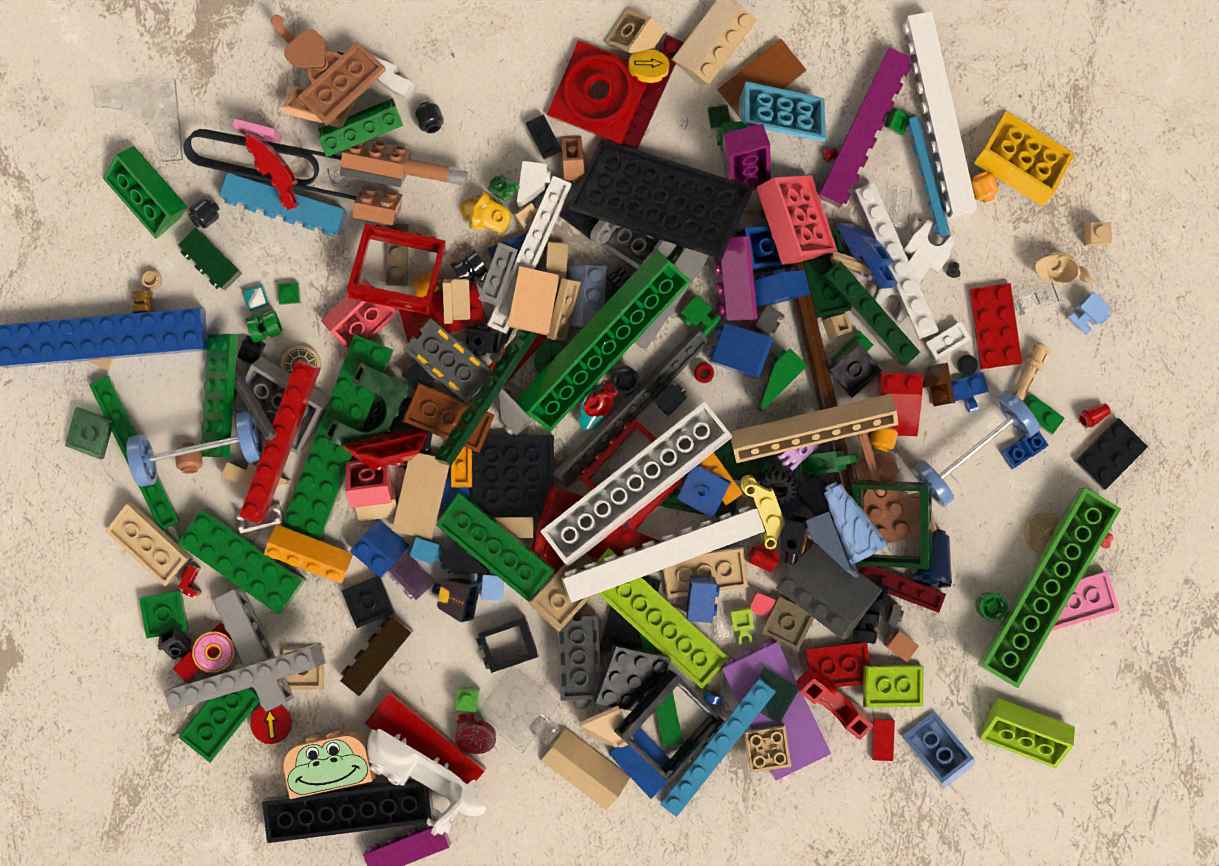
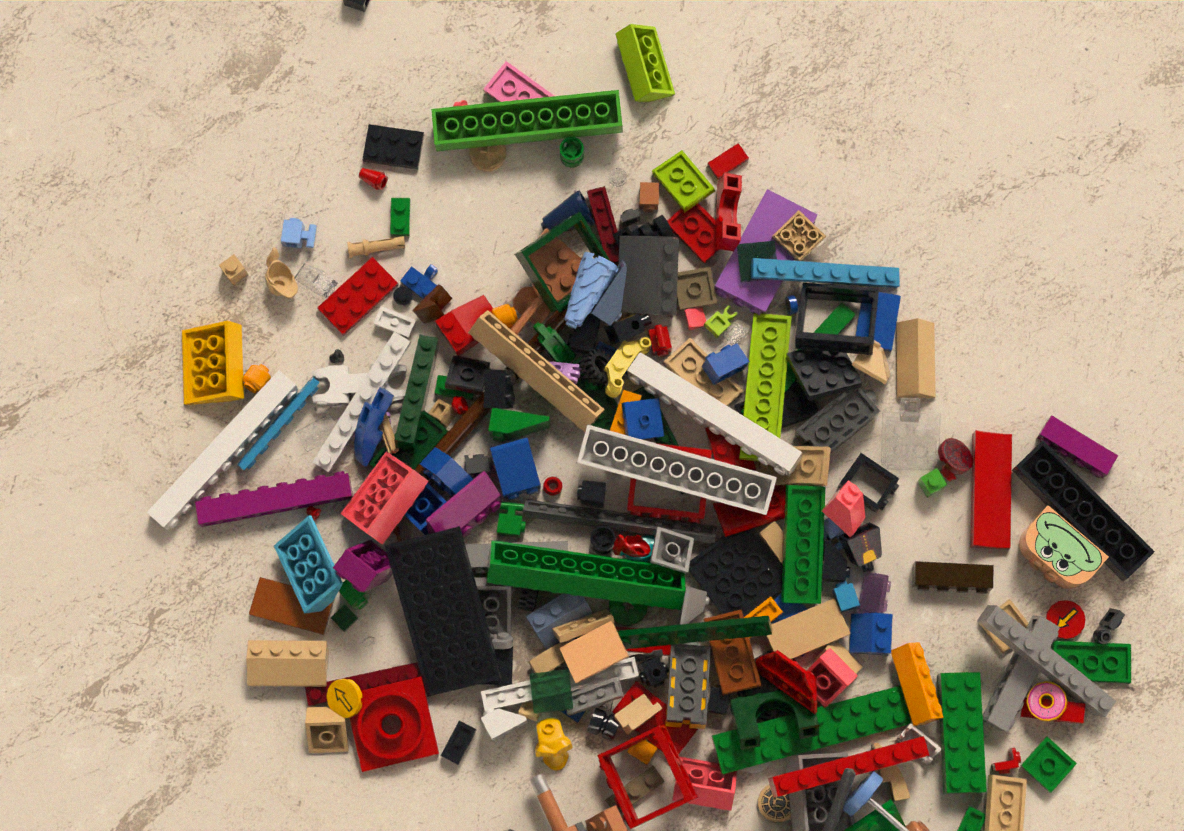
camera: 120 degrees left, 10 degrees down
(177, 646) = (1064, 732): black brick -> none
(240, 759) = (1110, 621): none -> black plate
(368, 601) = (917, 613): black plate -> none
(400, 761) = (1017, 496): white piece -> none
(498, 606) = (846, 508): none -> coral slope
(502, 187) = (522, 742): green hinge -> none
(527, 241) = (551, 691): none -> clear green tile
(571, 430) = (672, 550): none -> light grey slope
(572, 158) = (459, 707): nougat slope -> none
(821, 384) = (499, 388): none -> black brick
(833, 344) = (459, 405): none -> red plate
(897, 121) = (251, 478): green plate -> none
(939, 750) = (705, 116): medium blue slope -> none
(1016, 413) = (415, 232): medium blue axle -> none
(1024, 449) = (435, 211): blue slope -> none

